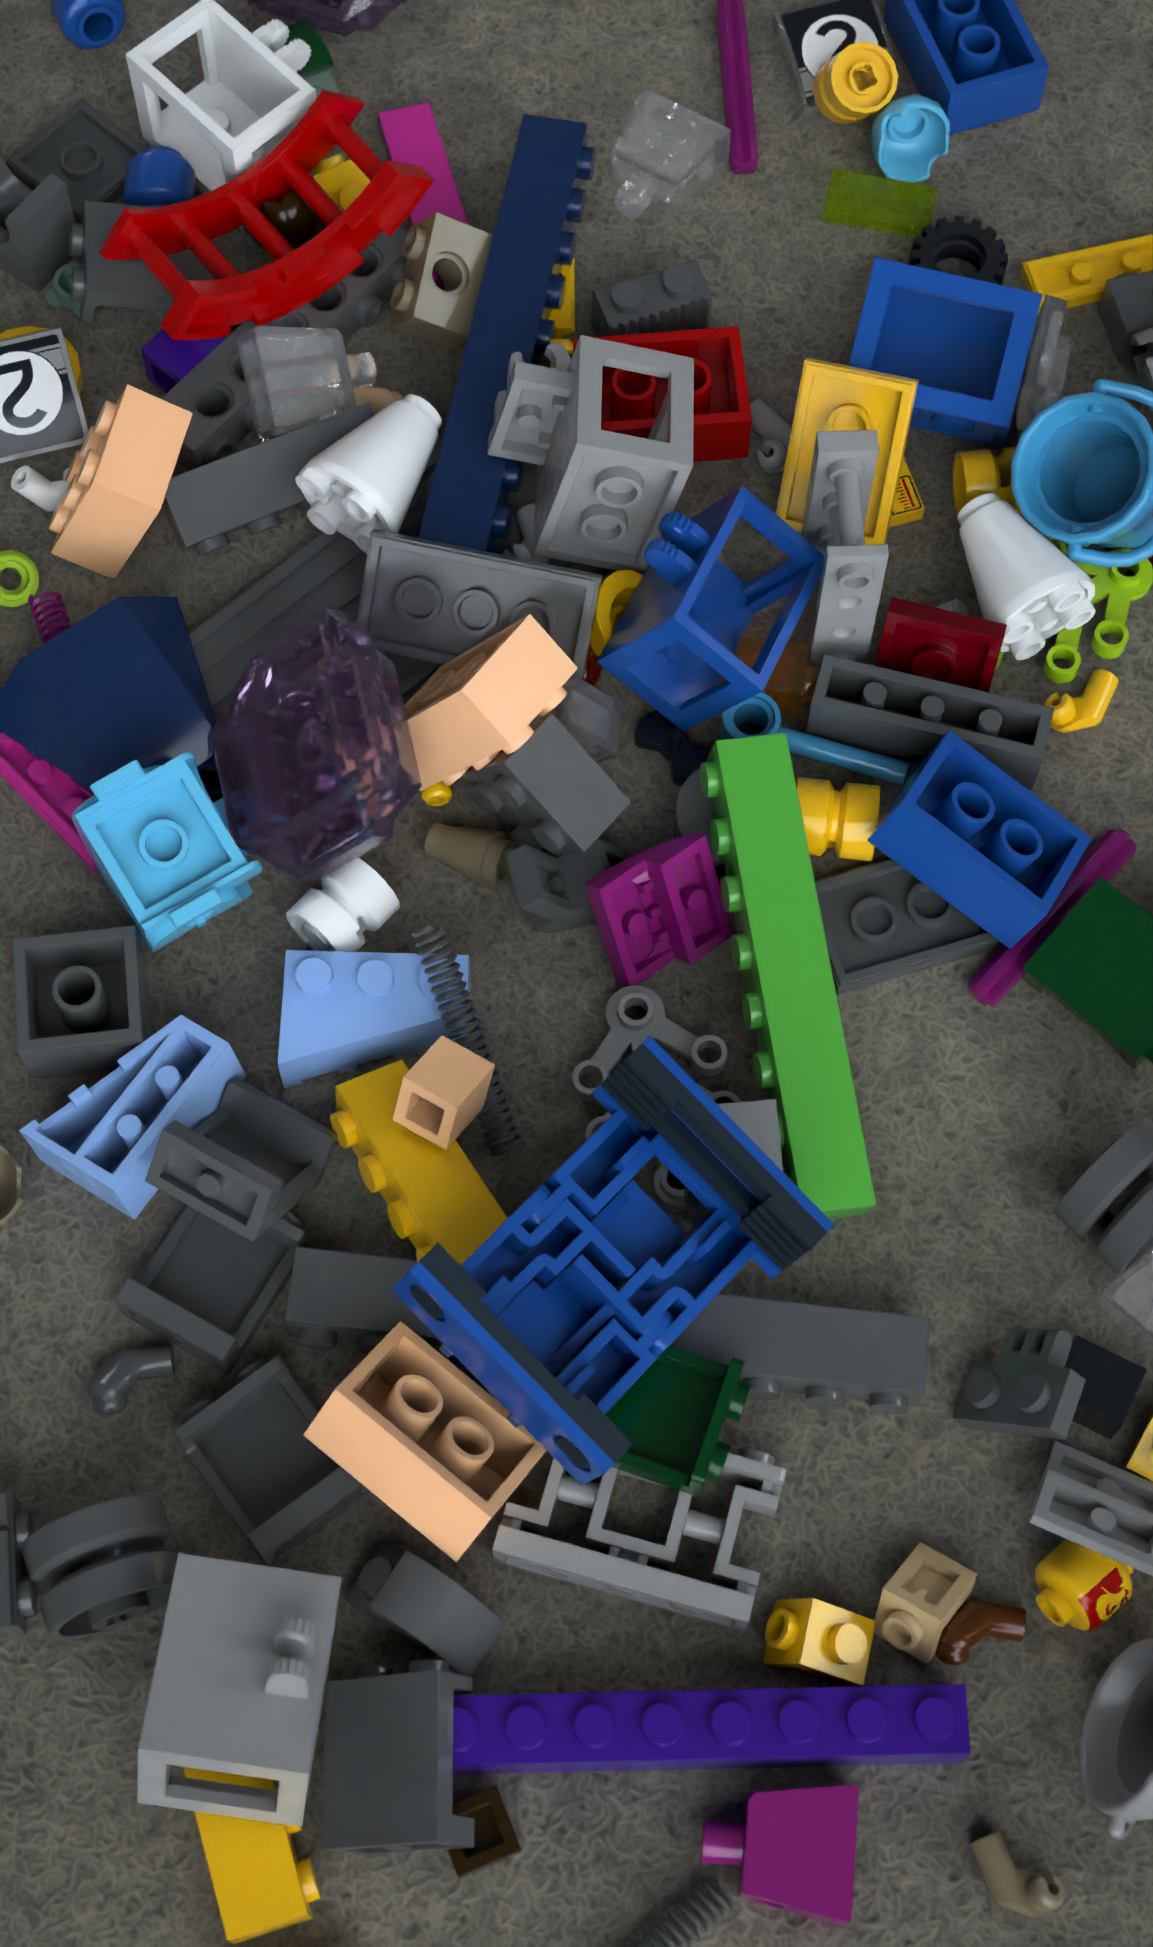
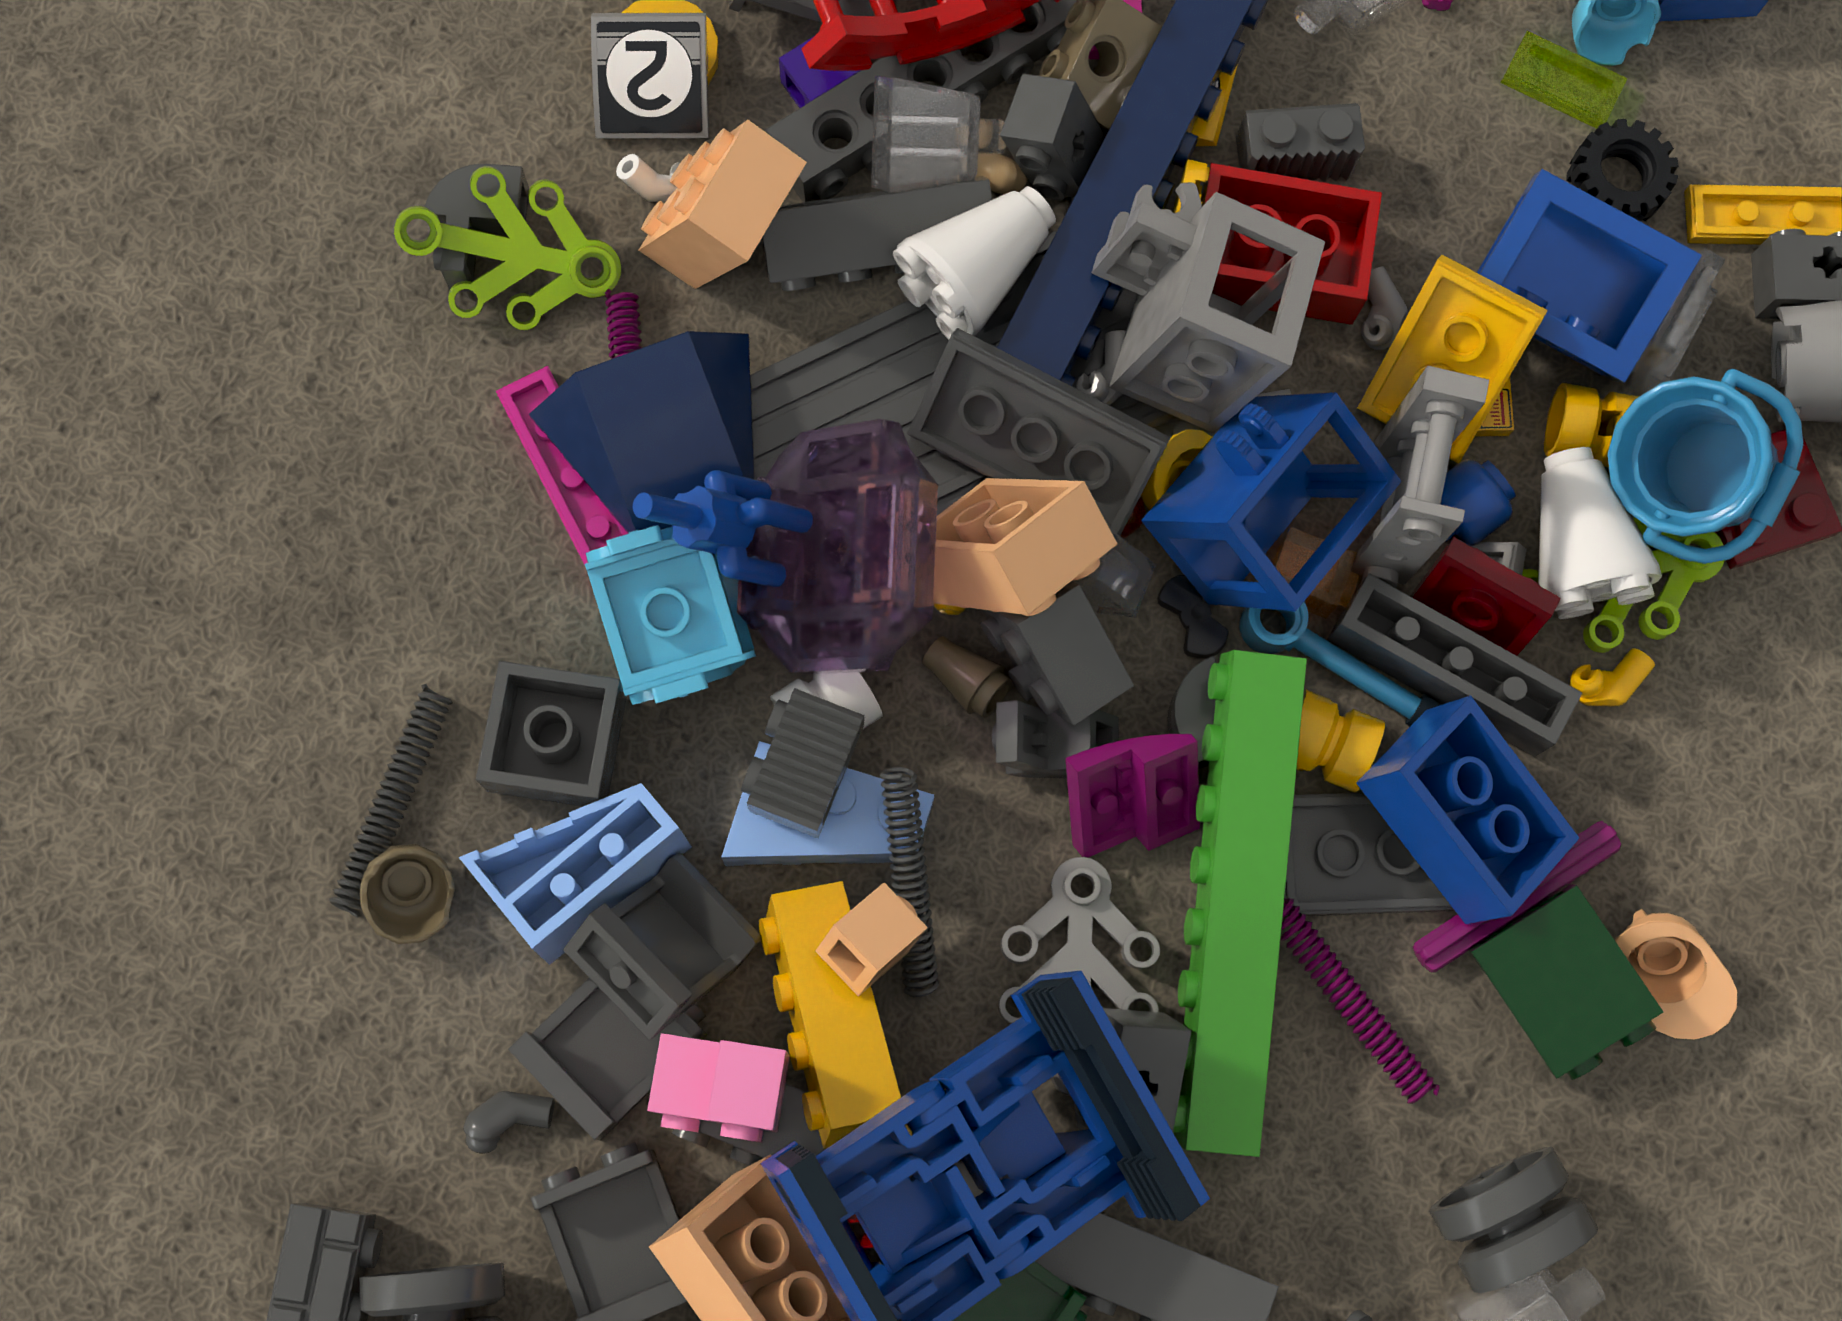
camera: 10 degrees right, 10 degrees up
(198, 742) = (724, 520): none -> blue plant
(333, 1262) = (718, 1084): none -> bright pink brick
(334, 948) = (803, 763): none -> dark grey brick
(416, 348) = (1052, 135): none -> dark grey brick
(910, 573) = (1483, 496): none -> blue head
(926, 1053) = (1344, 977): none -> magenta piece

